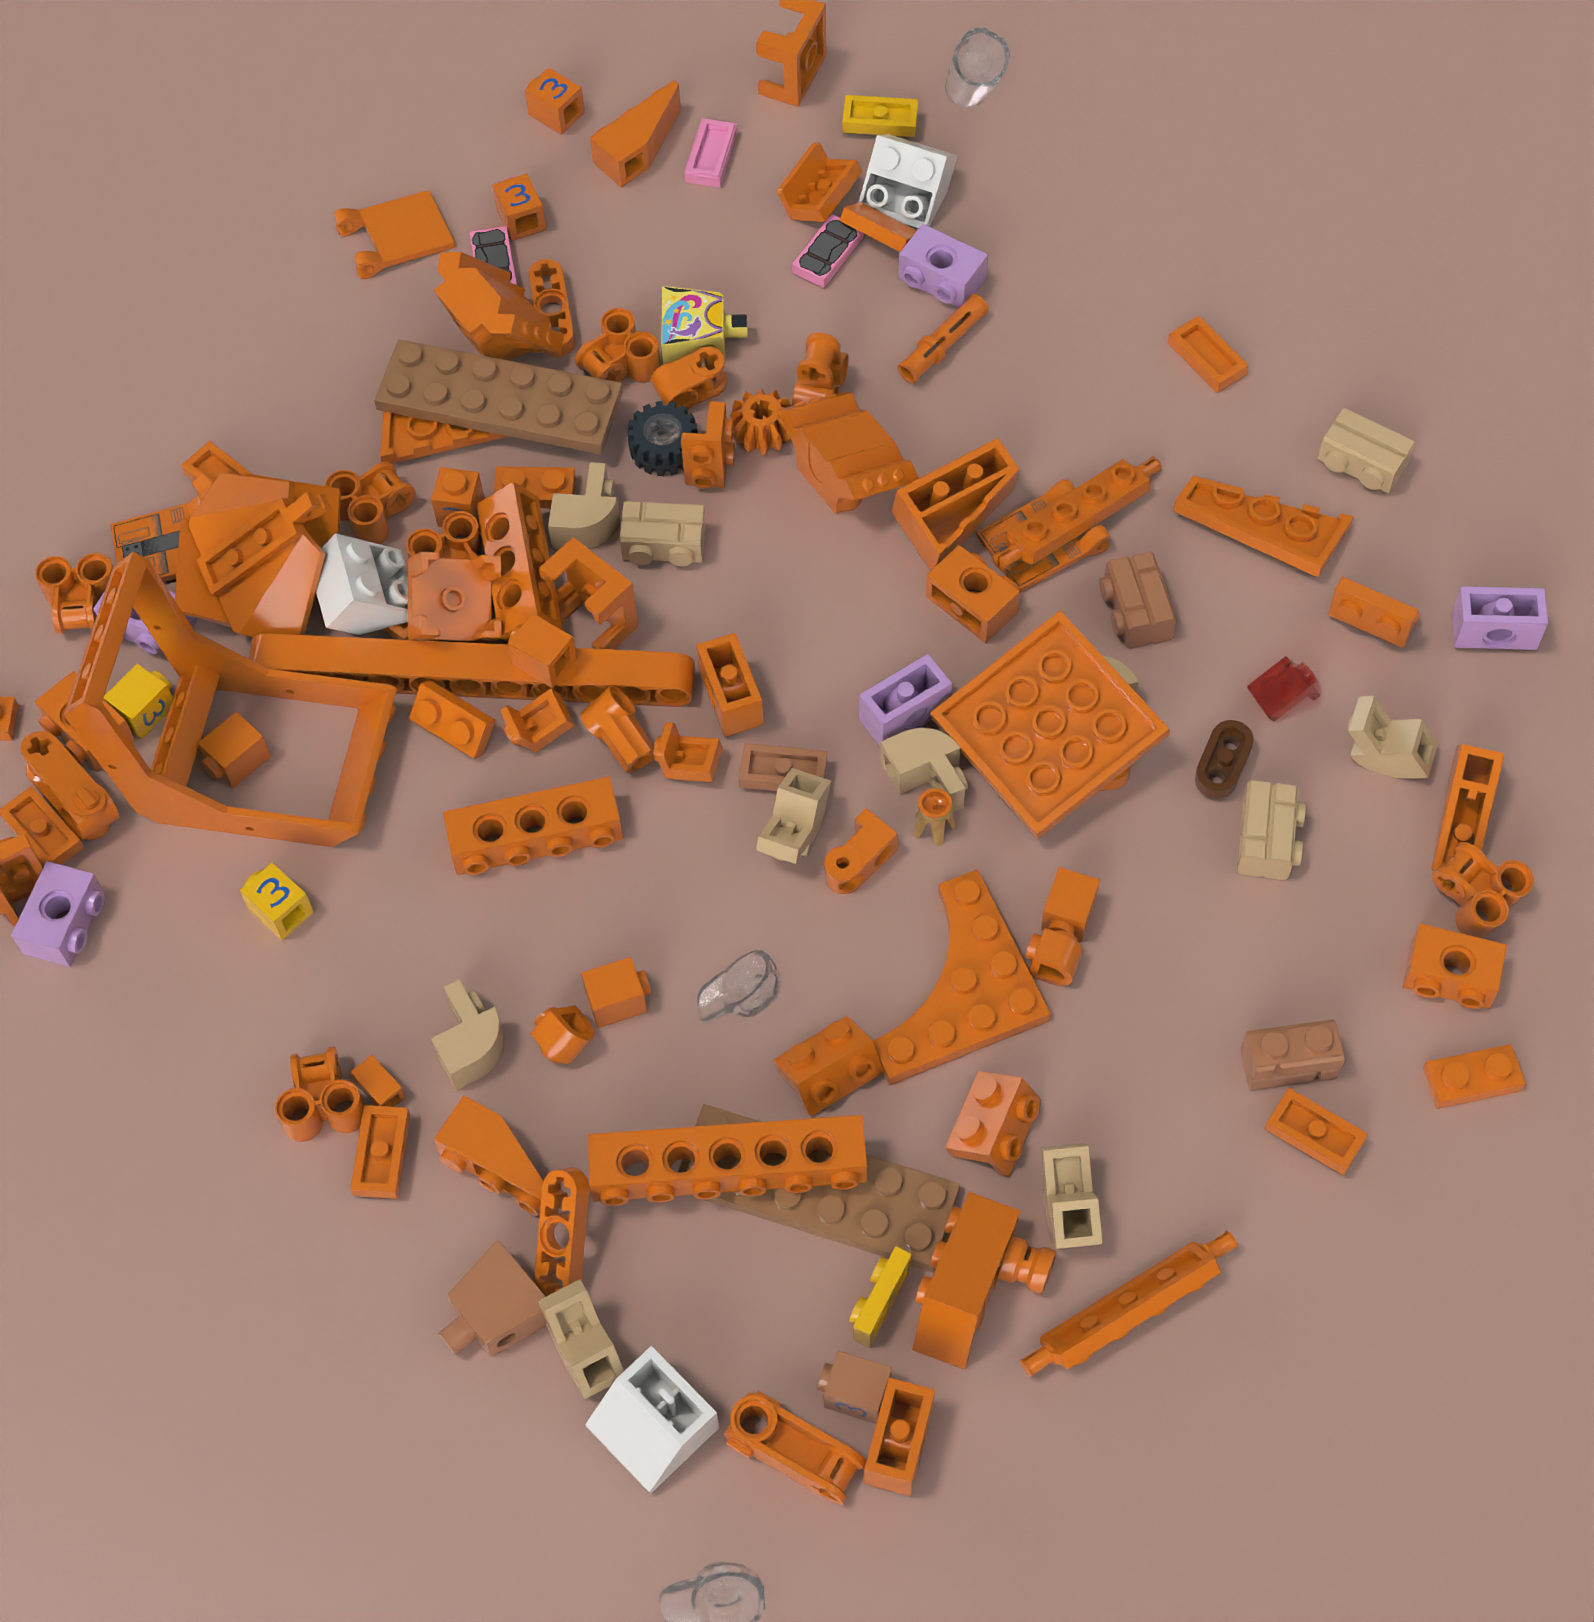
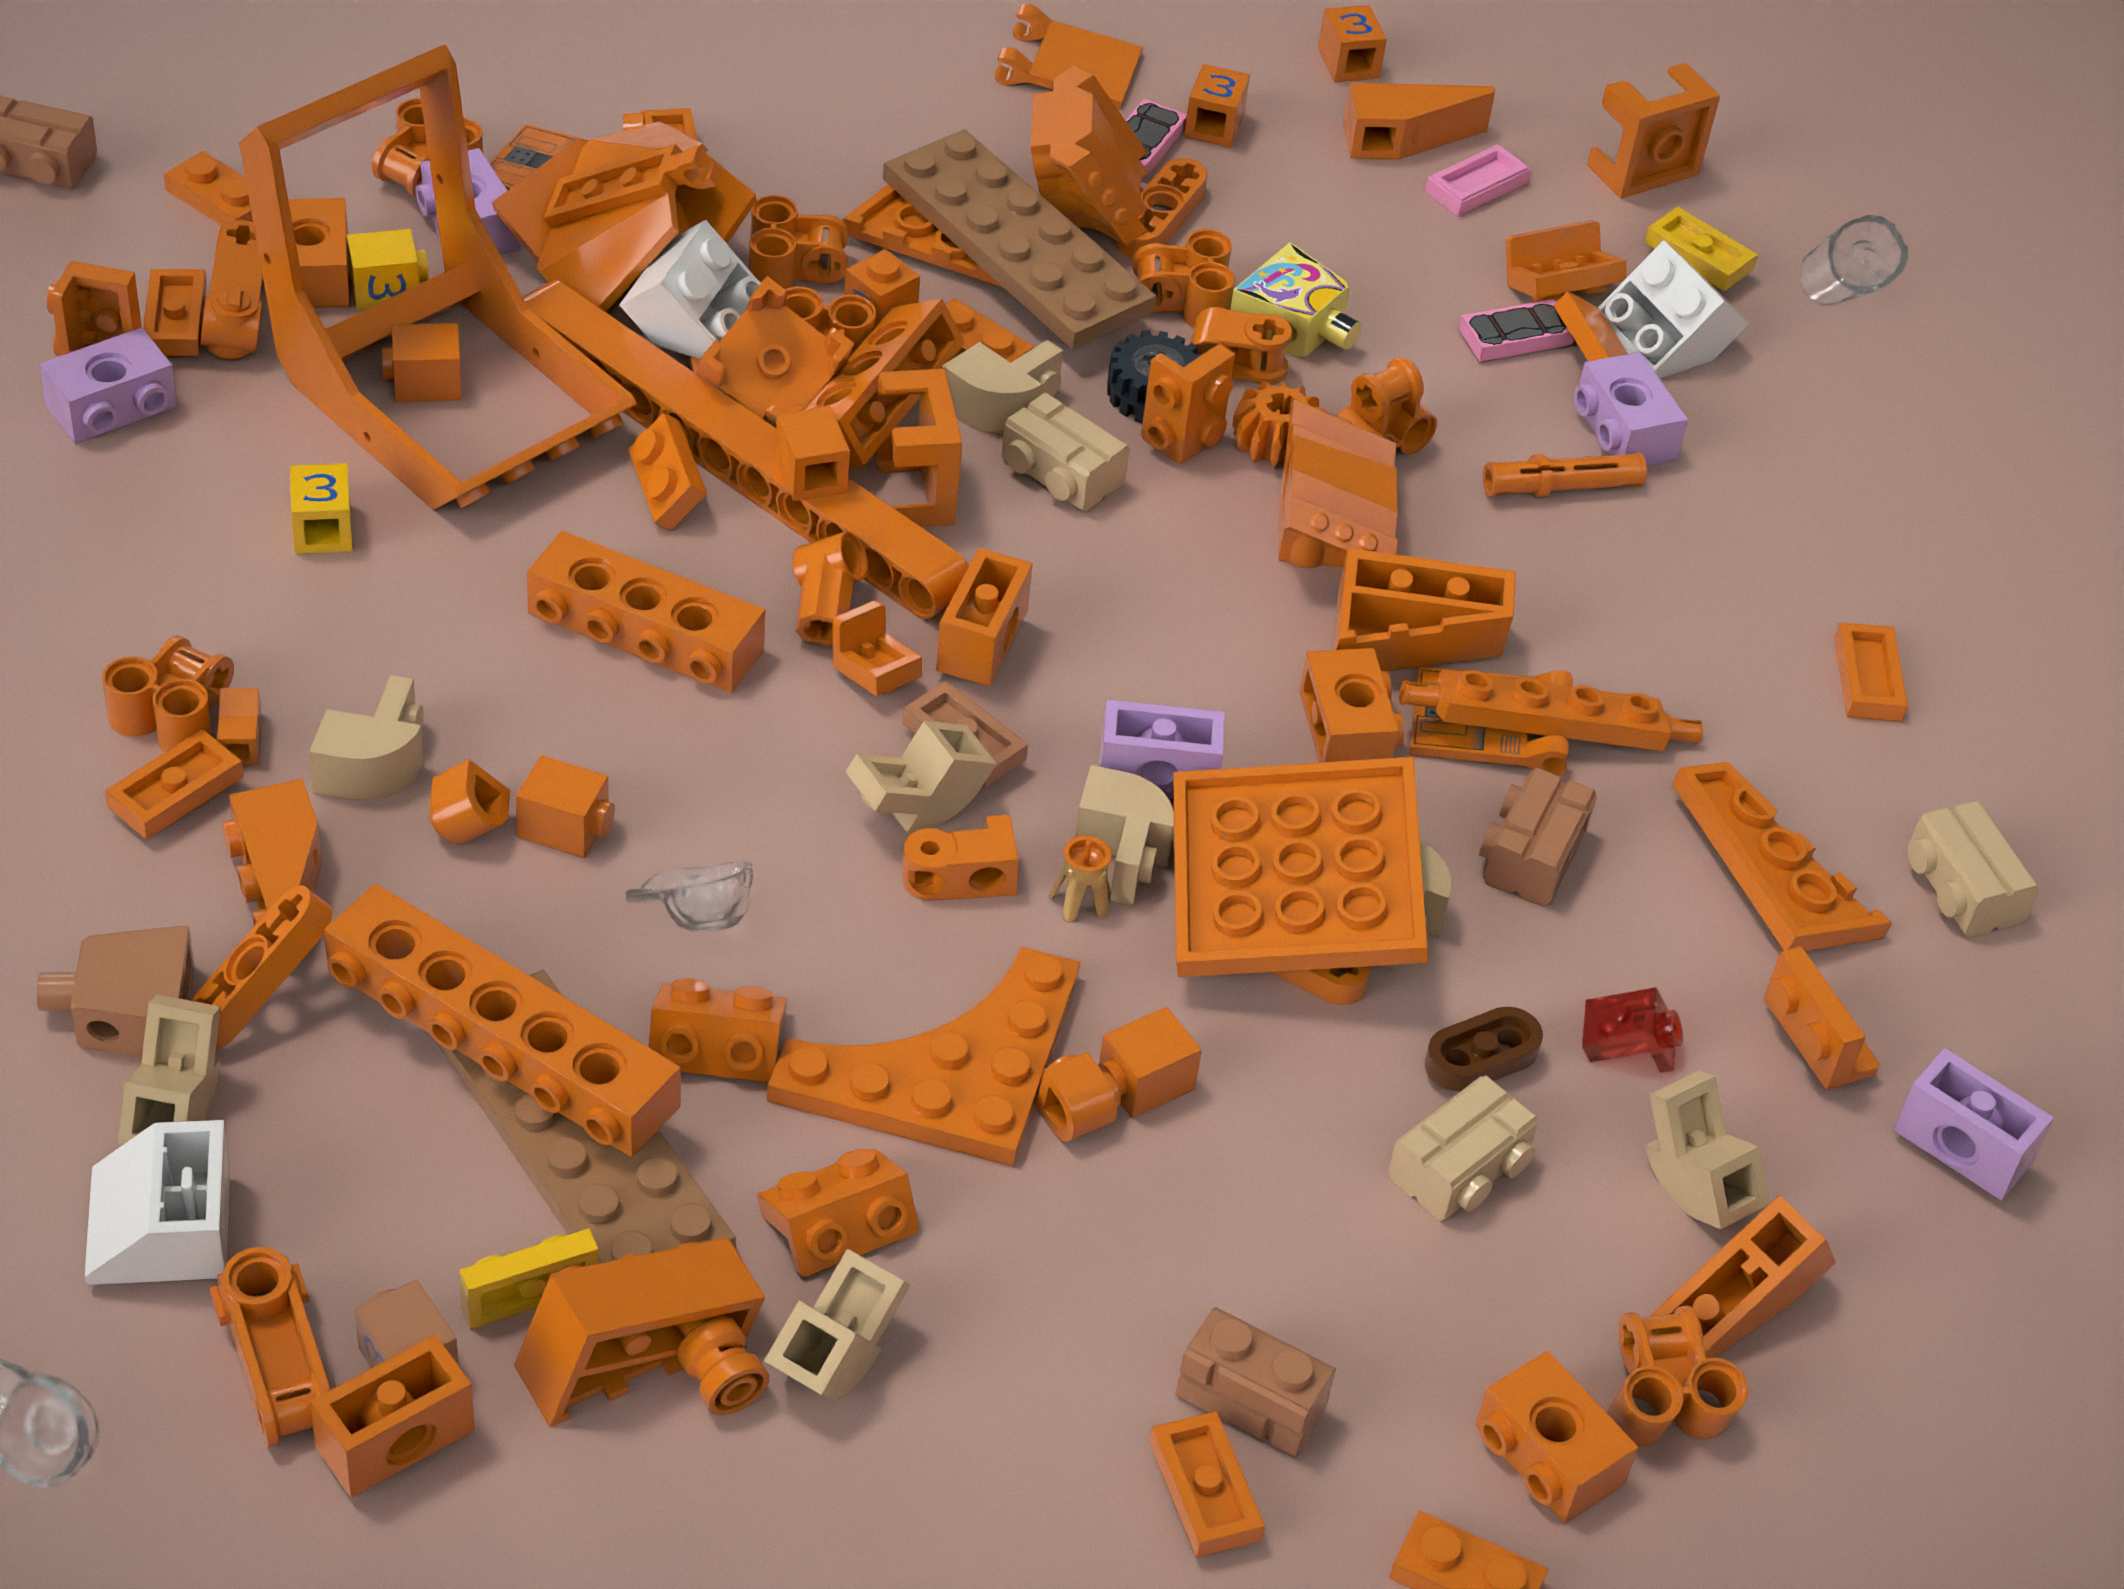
camera: 30 degrees right, 15 degrees down
(538, 721) = (749, 531): orange bracket -> none
(1129, 1305) = (767, 1490): orange plate -> none

